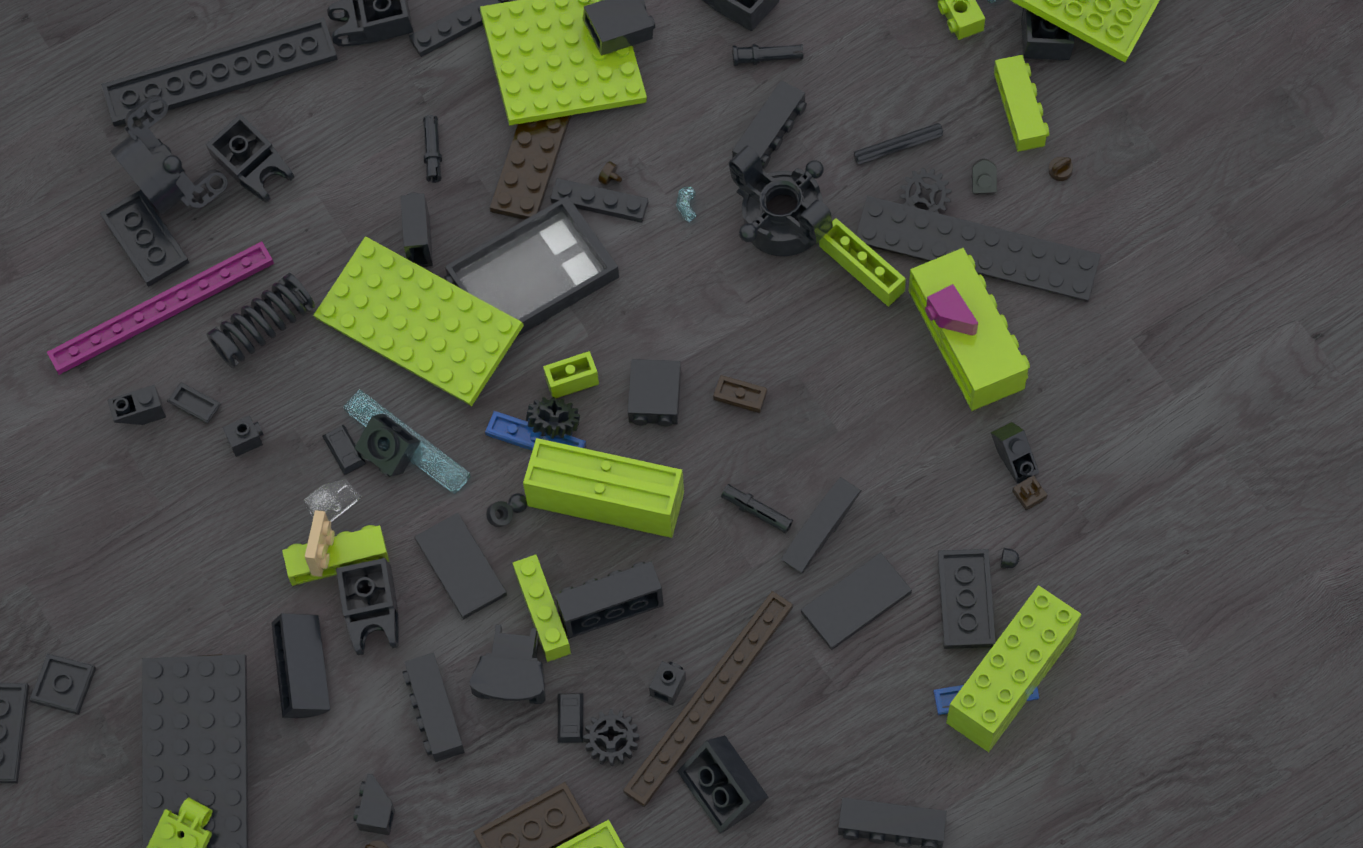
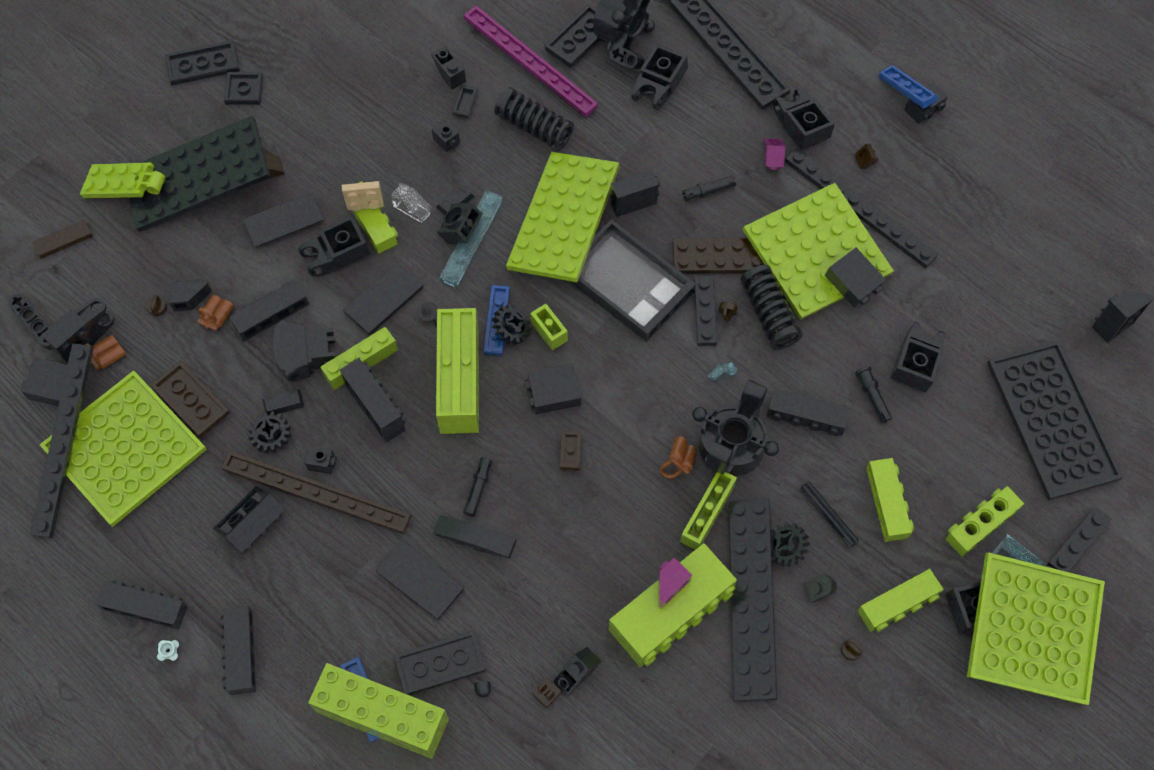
camera: 70 degrees right, 0 degrees up
(408, 61) = (774, 153): none -> magenta slope
(413, 778) = (215, 312): none -> dark orange piece
(614, 127) = (773, 307): none -> black piece
(788, 272) = (682, 456): none -> dark orange piece
(900, 77) = (889, 500): none -> lime brick

